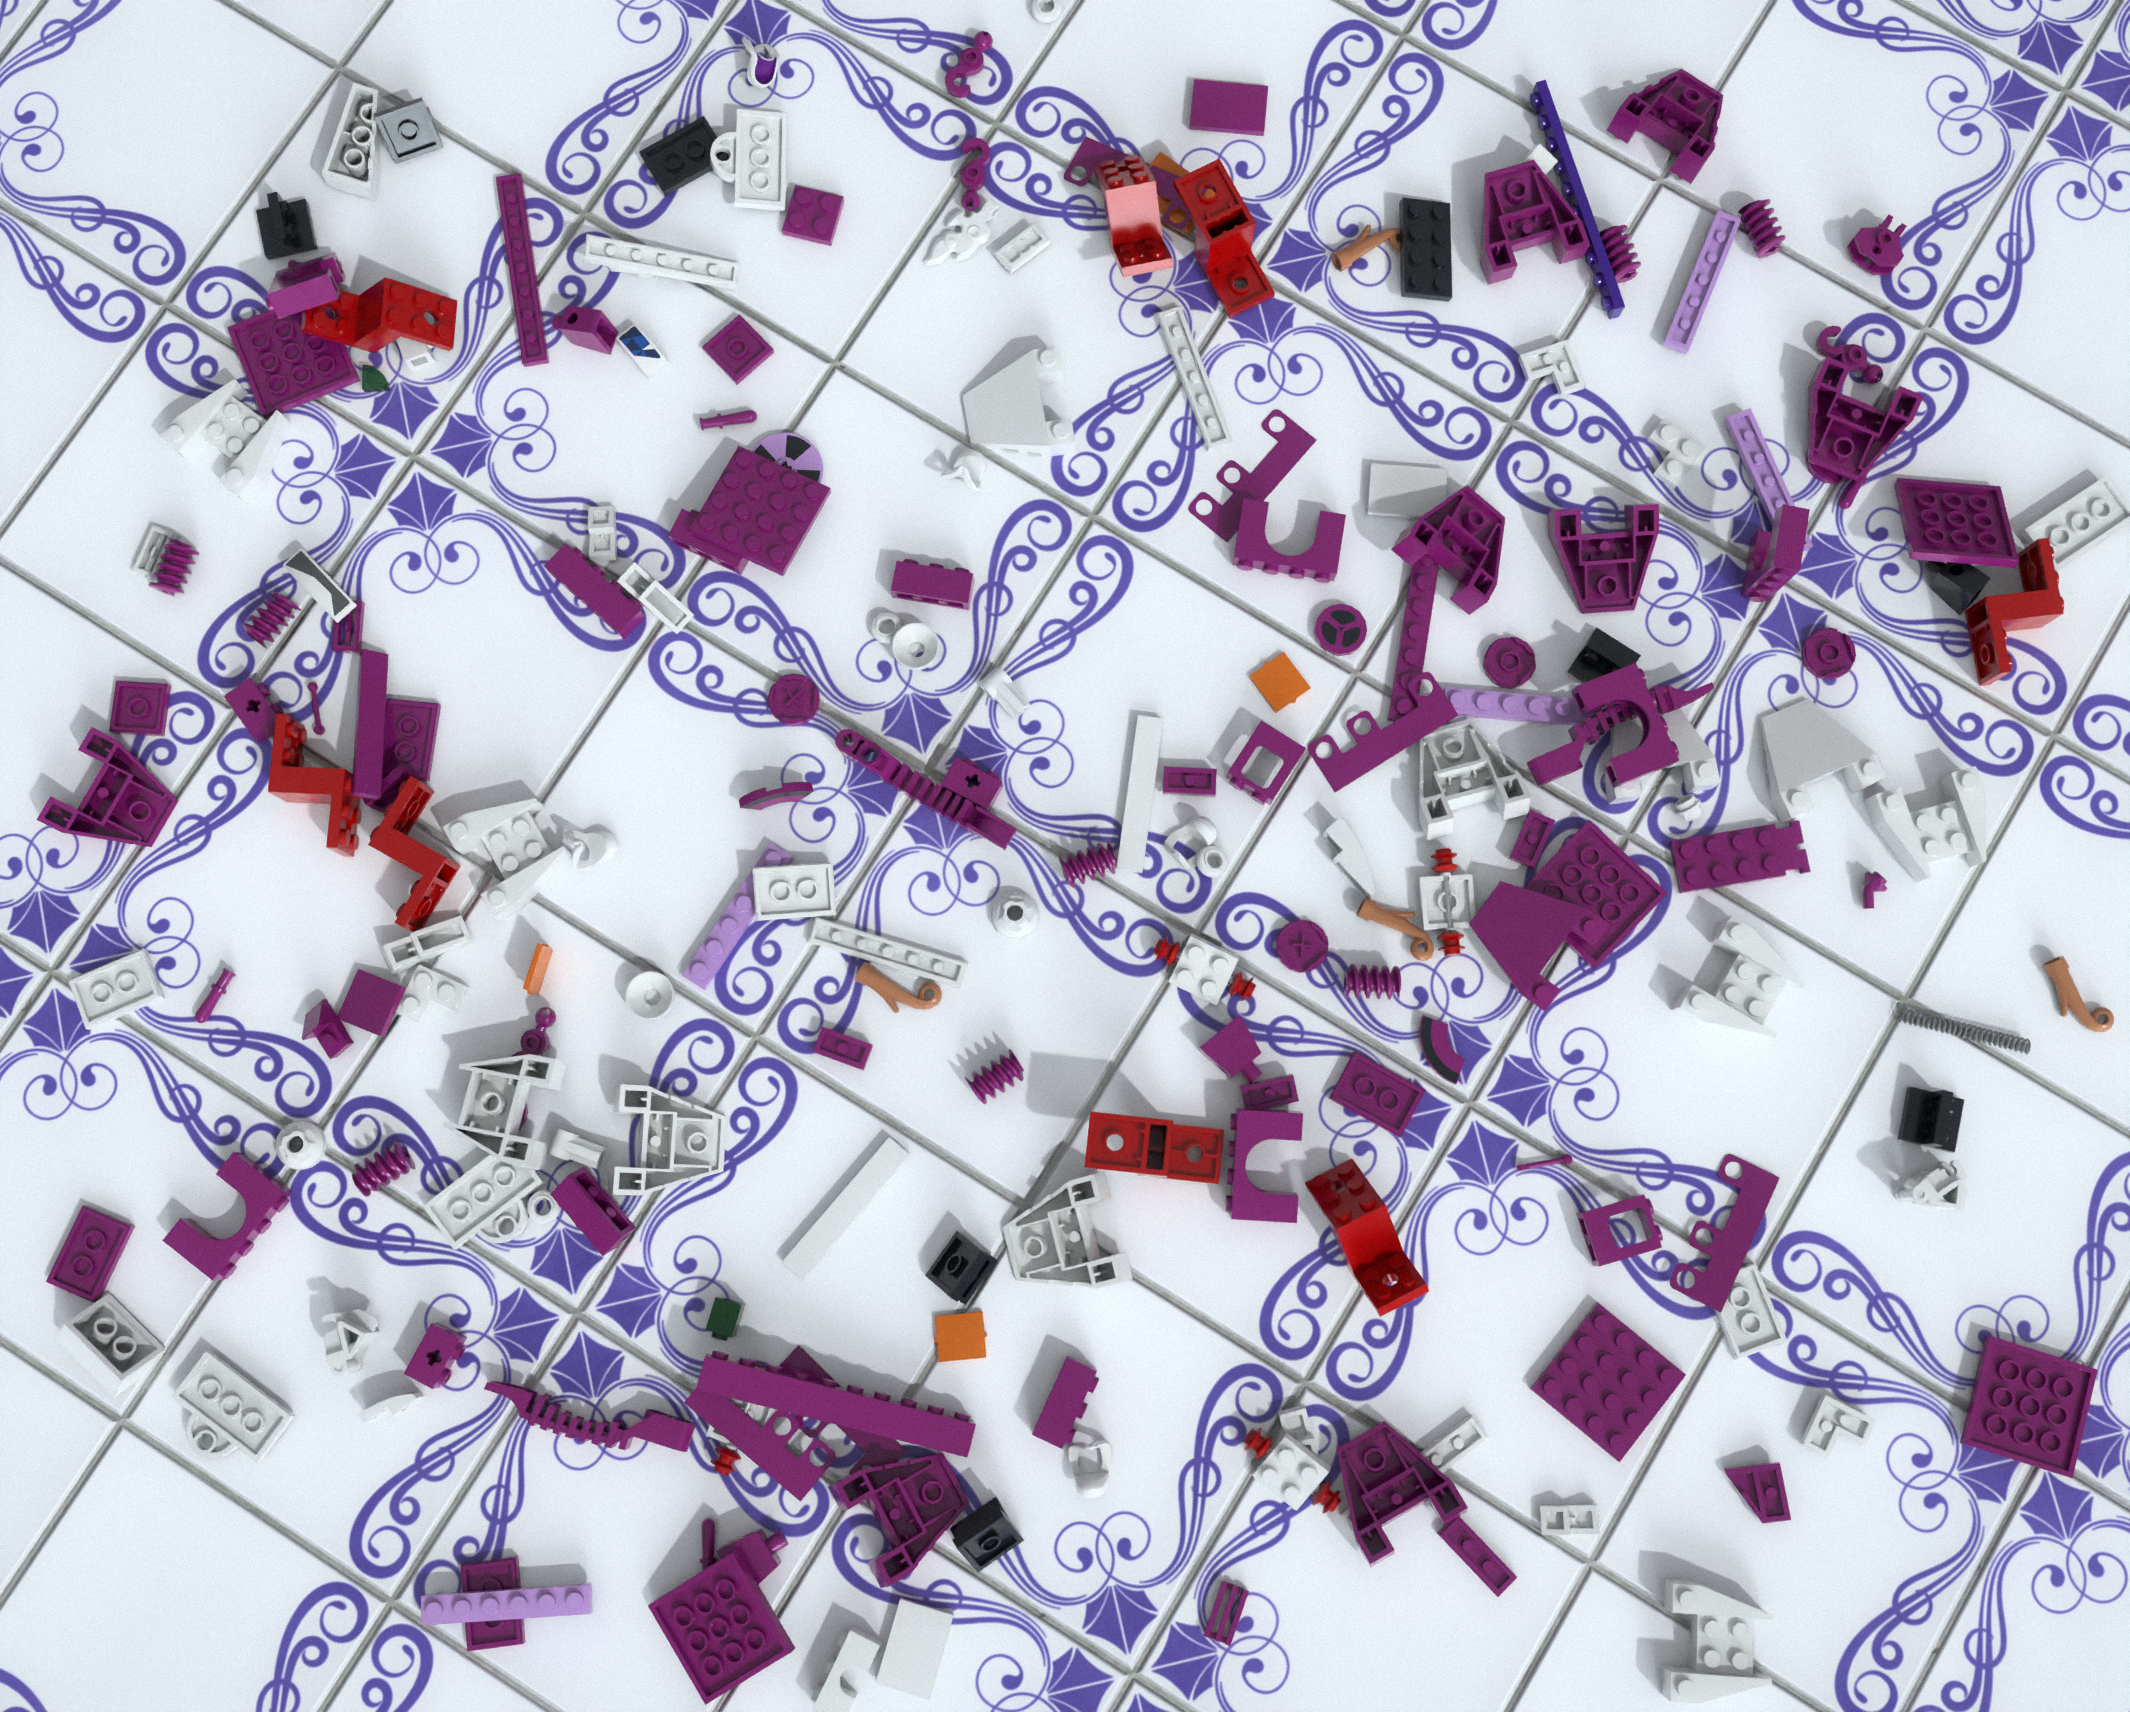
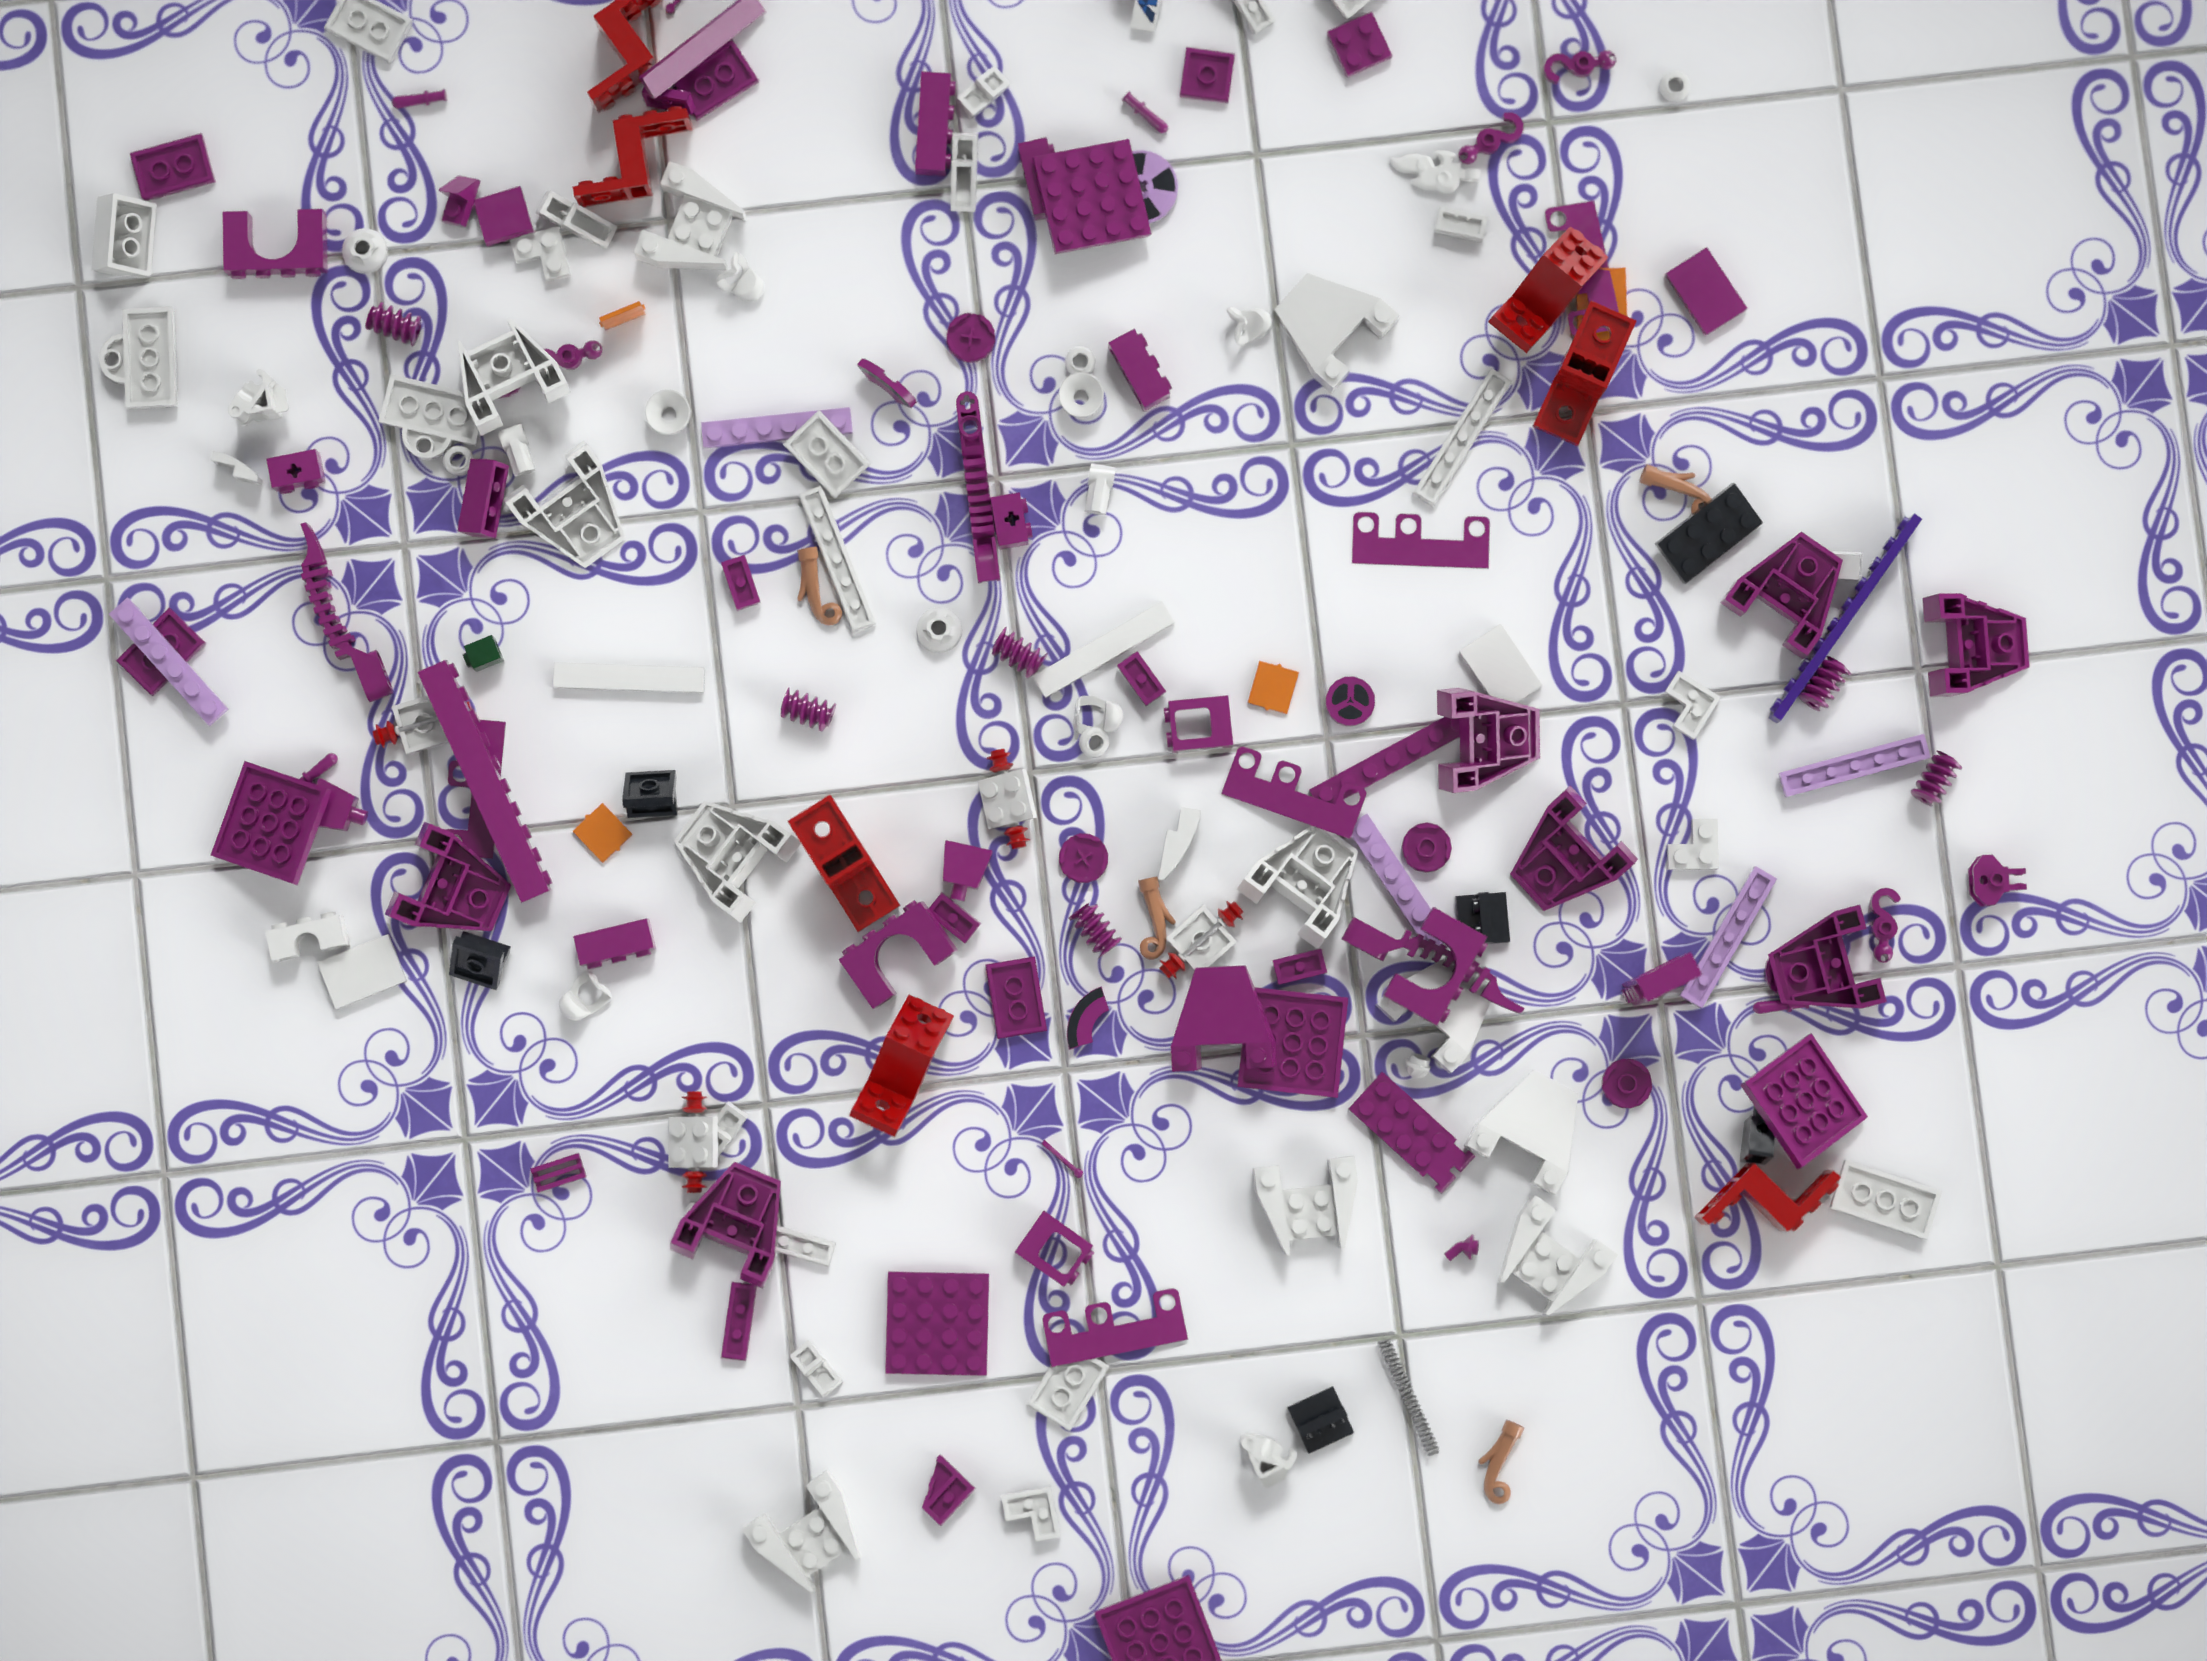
camera: 45 degrees right, 5 degrees up
(762, 1443) = (417, 751): magenta piece -> none
(1255, 552) = (1388, 643): magenta arch -> none

